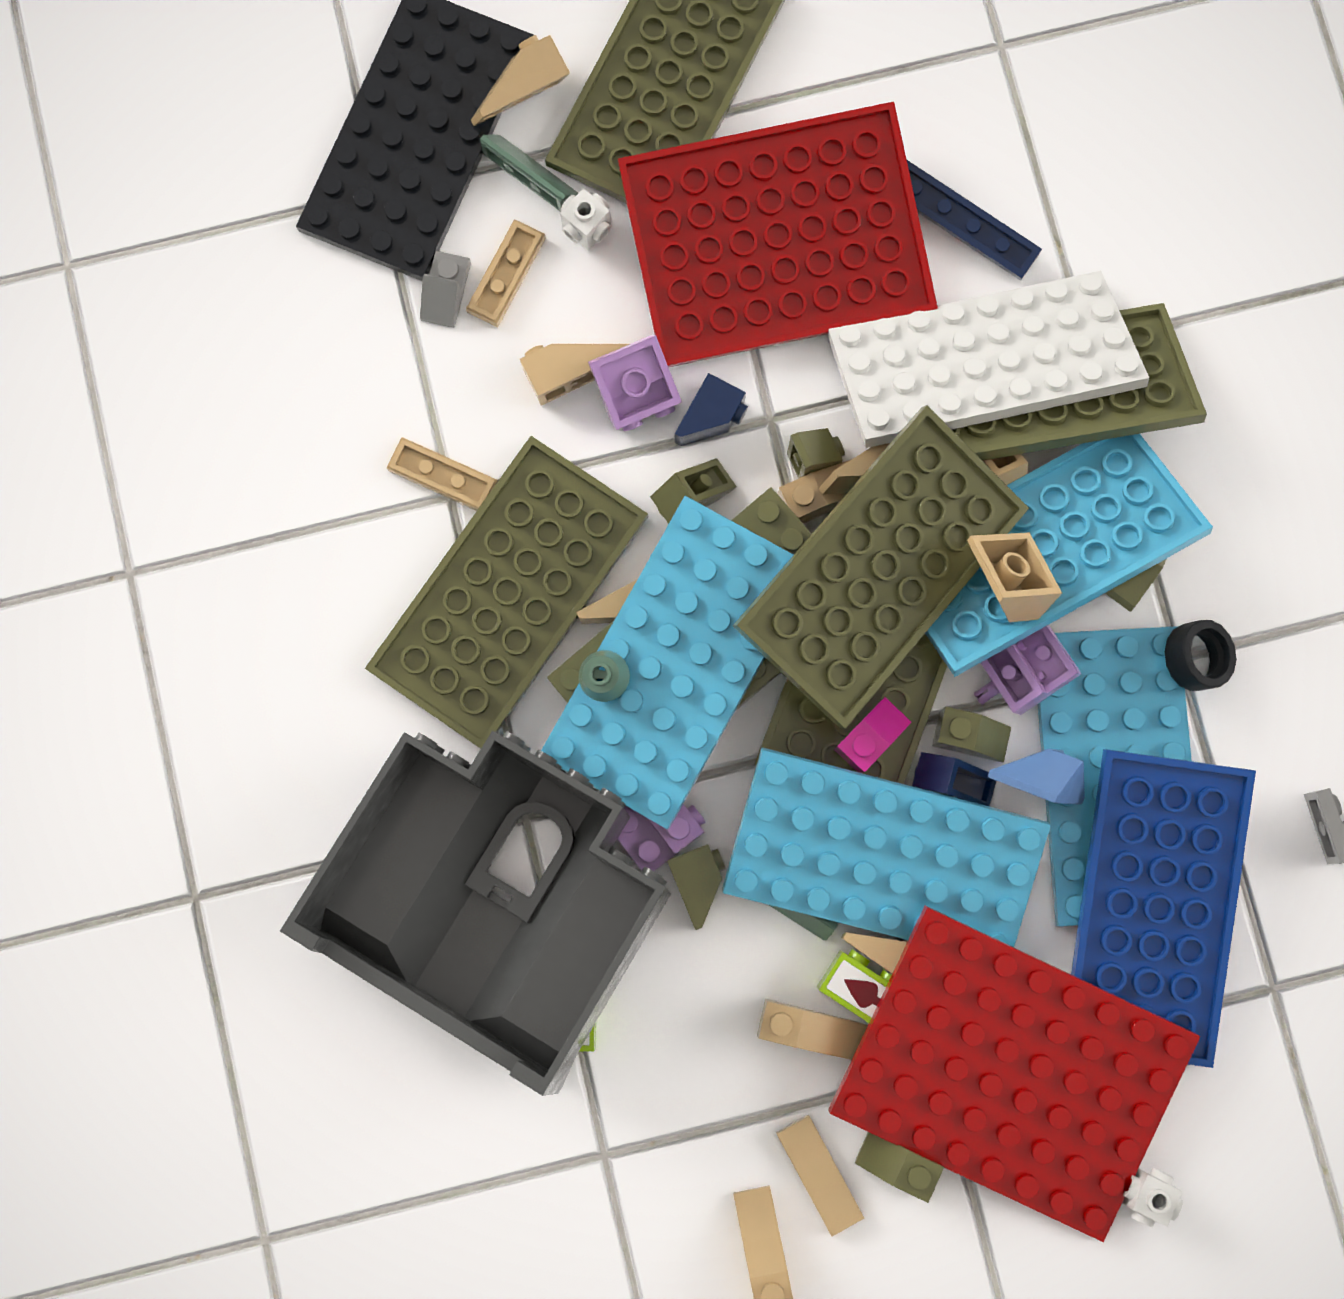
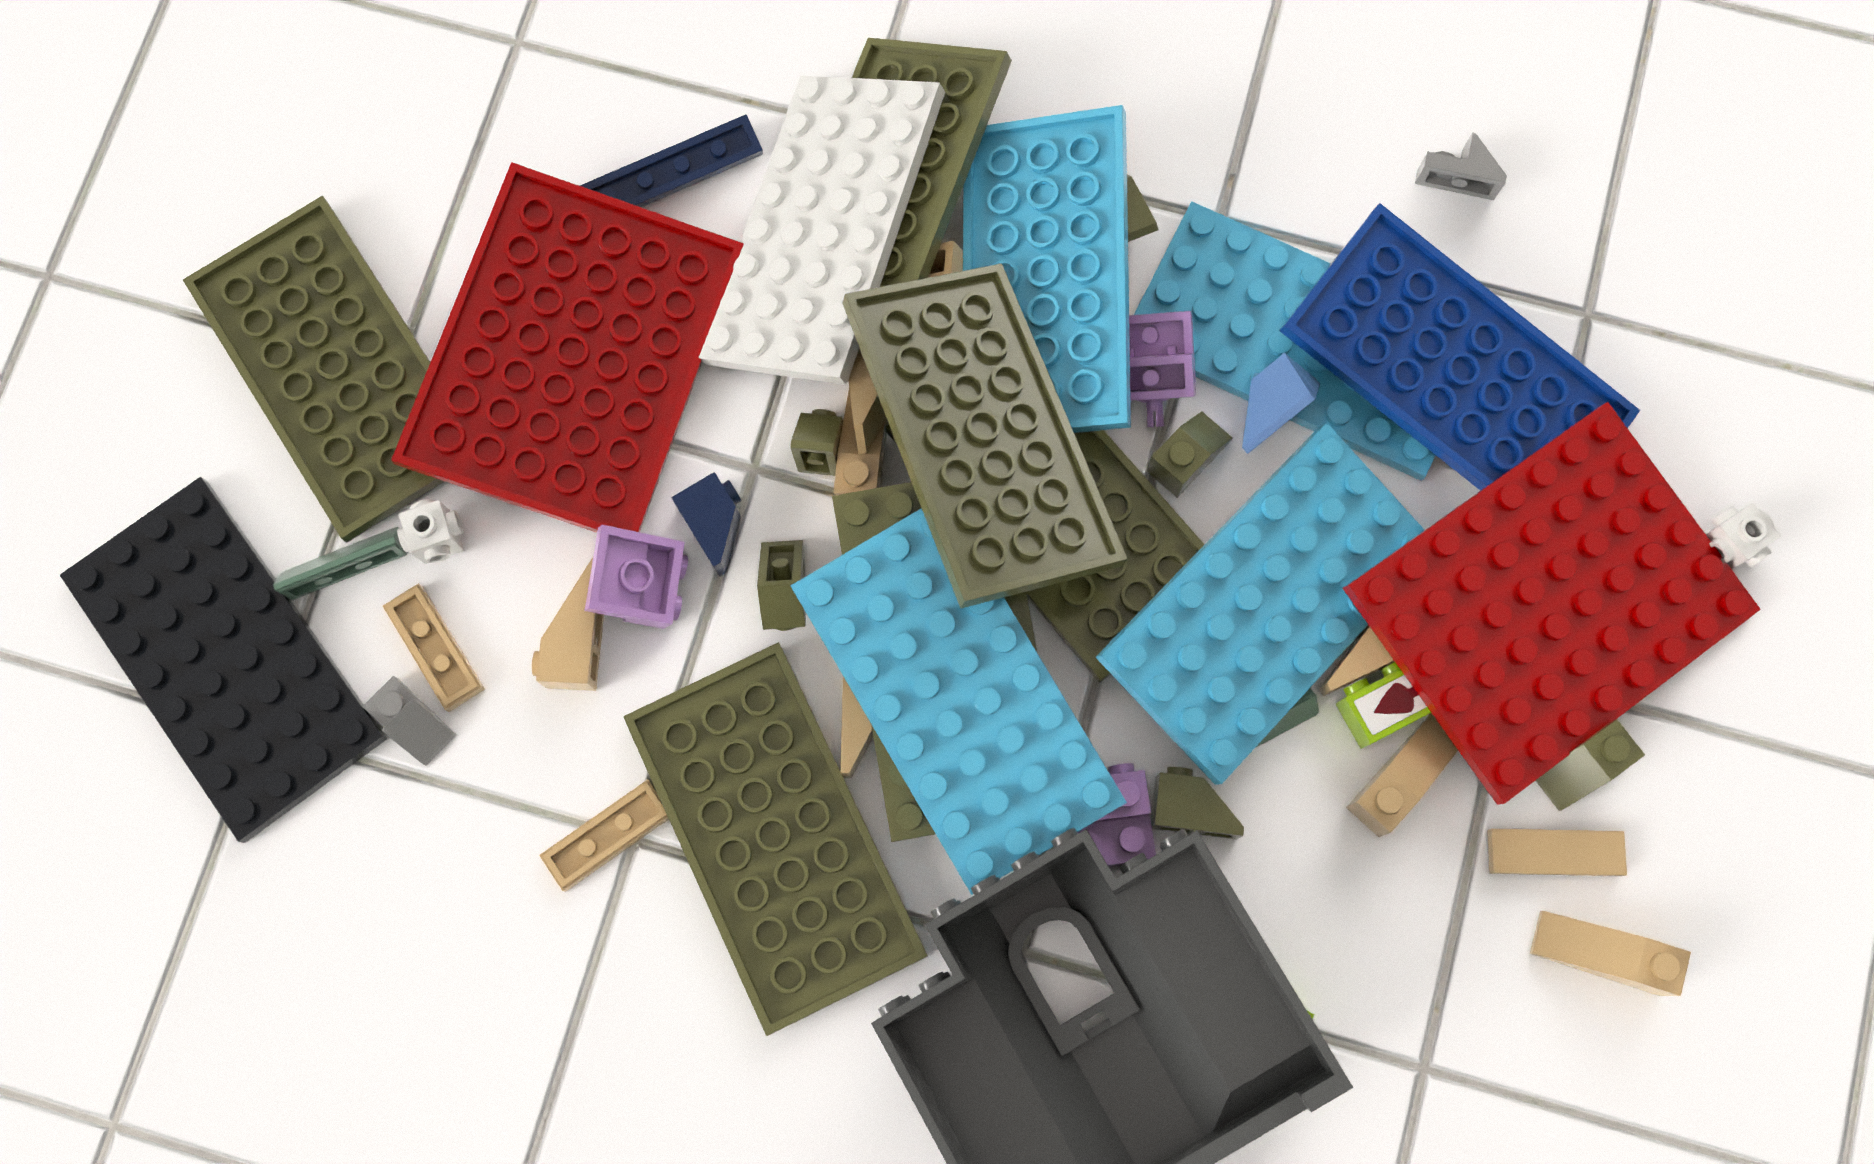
camera: 60 degrees left, 5 degrees down
(527, 74) = (239, 506): tan slope -> none
(614, 677) = (940, 763): sand green cone -> none
(872, 736) = (1145, 545): dark pink slope -> none
(953, 778) = (1224, 493): dark blue slope -> none
(1016, 574) = (1066, 306): tan slope -> none
(1220, 649) = (1226, 212): black tyre -> none

